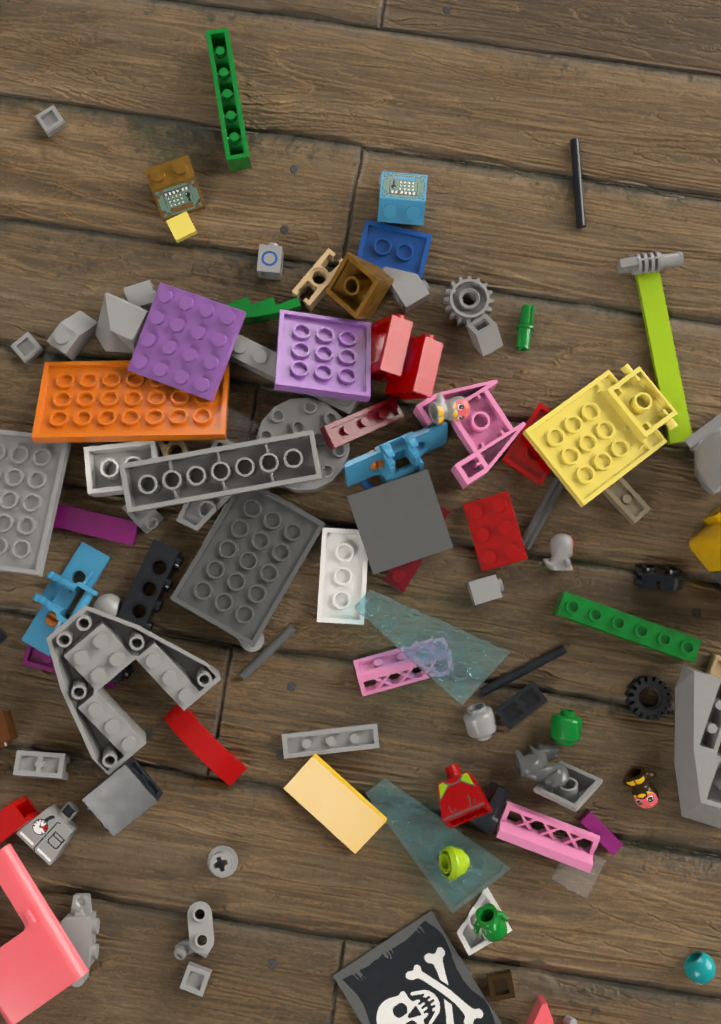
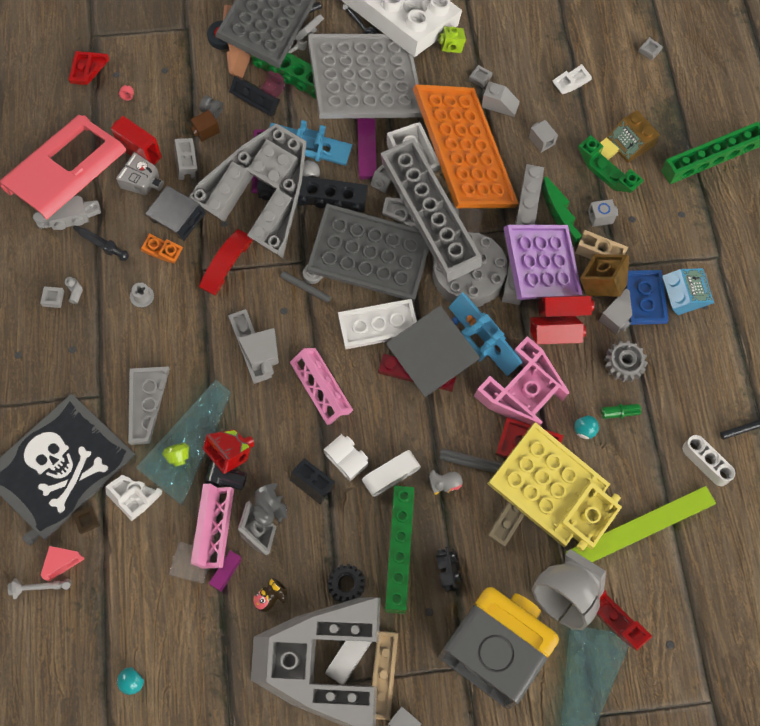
camera: 75 degrees right, 15 degrees down
(68, 234) = (570, 81): none -> white slope
(120, 324) = (517, 127): light grey slope -> none
(142, 892) = (108, 247): none -> black sword
(164, 823) = (161, 249): none -> orange slope
(186, 341) = (520, 167): medium lavender plate -> none
(200, 927) = (91, 290): light grey plate -> none
(214, 235) = (605, 170): none -> green slope
(335, 803) = (202, 360): yellow tile -> none
(348, 729) = (261, 350): none -> light grey torso
(361, 423) = (500, 302): plate -> none
(369, 886) = (145, 397): none -> light grey wing
(442, 651) = (340, 402): clear light blue wing -> none
(453, 409) = (532, 359): light grey animal -> none
(480, 721) = (291, 452): light grey head -> none
(484, 335) = (602, 378): light grey brick -> none
(485, 589) = (398, 430): light grey brick -> none
(491, 923) = (134, 494): green animal -> none
(495, 531) = (447, 427): red plate -> none
(515, 660) = (346, 457): none -> white brick
(523, 670) = (341, 478): black bar -> none
(534, 612) = (391, 473): none -> white beam
(536, 373) = (586, 427): none -> teal piece
(566, 727) = (304, 520): green head -> none
(616, 245) = (718, 464): none -> white beam
(649, 262) = (712, 493): light grey hinge -> none

